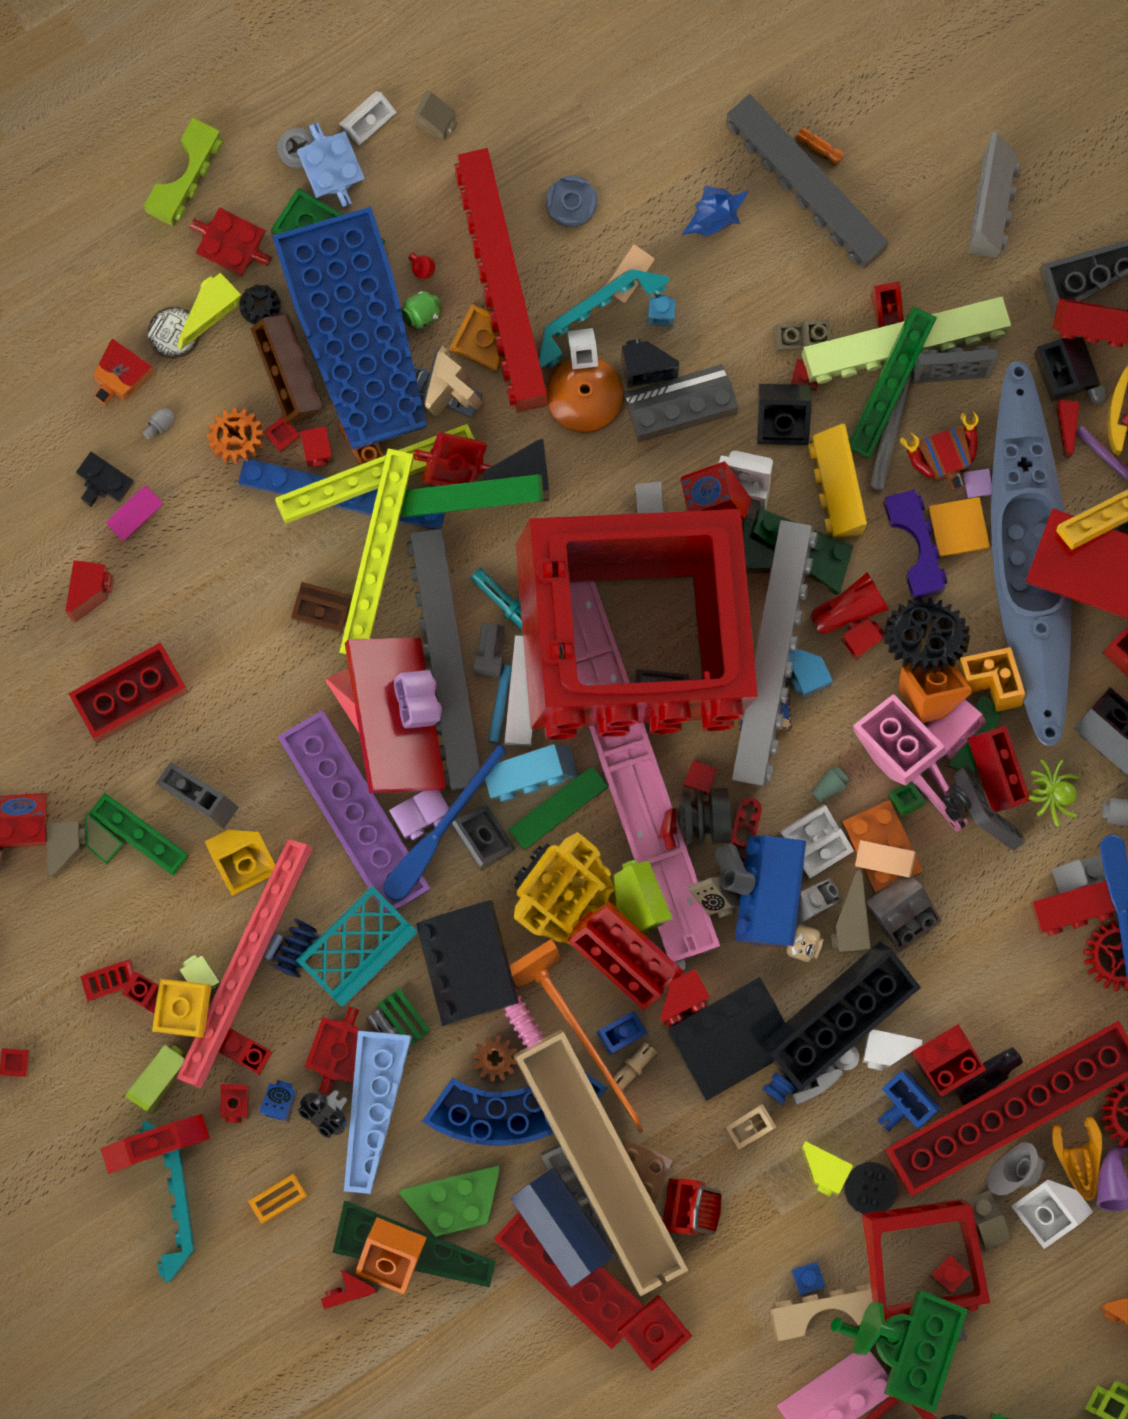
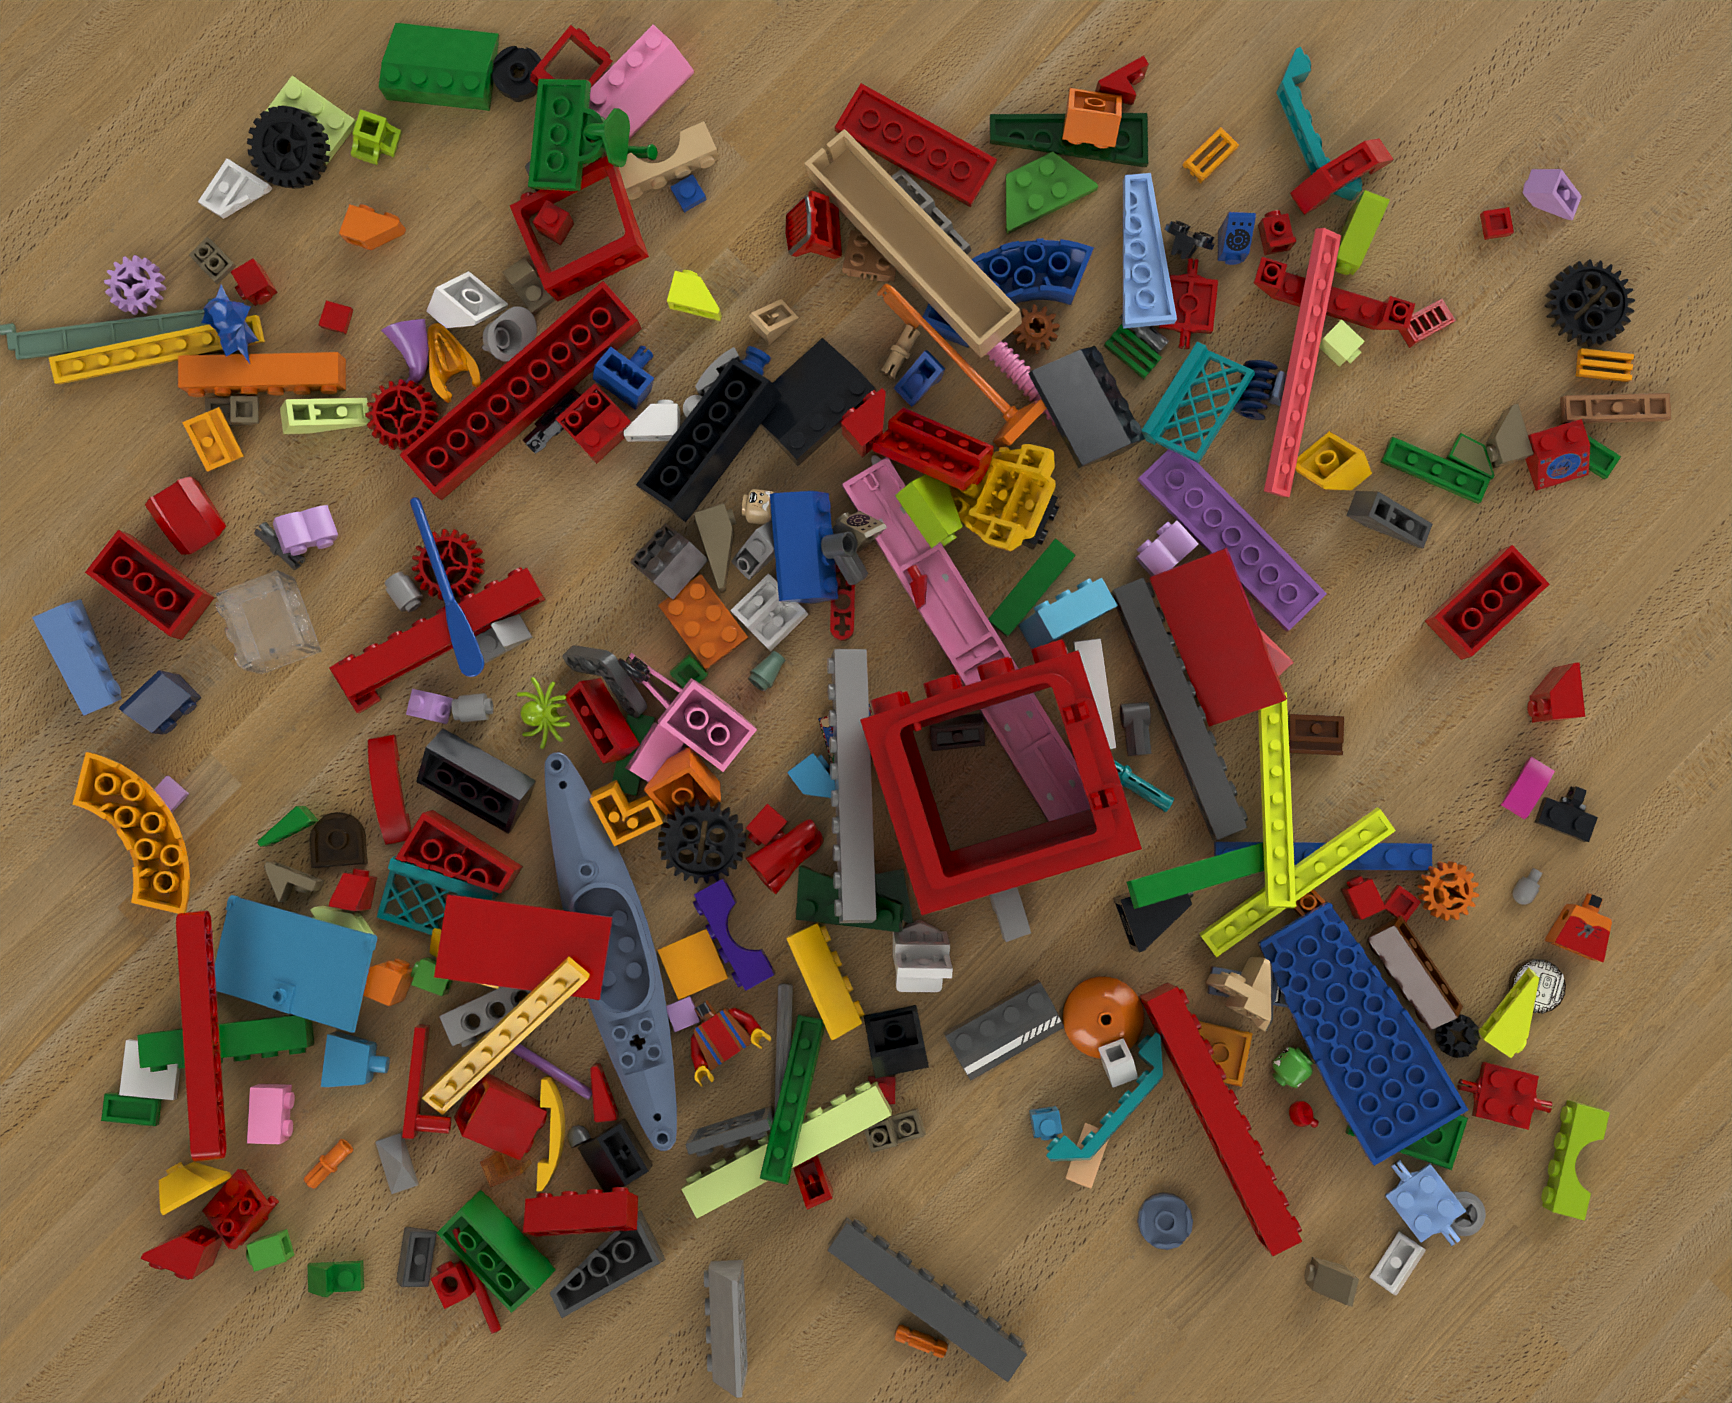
camera: 170 degrees right, 5 degrees up
(181, 1008) = (1353, 303): yellow tile -> none
(414, 863) = (1160, 498): blue piece -> none
(417, 699) = (1200, 657): lavender brick -> none
(453, 460) = (1222, 911): red plate -> none
(483, 837) = (1099, 540): dark grey slope -> none
(500, 703) = (1113, 681): dark azure bar -> none
(562, 1227) = (933, 181): dark blue slope -> none
(646, 364) = (1050, 1060): black slope -> none
(654, 1332) = (823, 107): red tile -> none
(700, 777) = (897, 650): red tile -> none
(706, 816) = (884, 606): pearl dark grey wheel -> none
(715, 211) = (1015, 1243): blue hair -> none
(715, 489) = (948, 935): red slope -> none
(873, 1176) = (647, 277): black plate -> none
(885, 858) = (696, 603): light nougat slope -> none

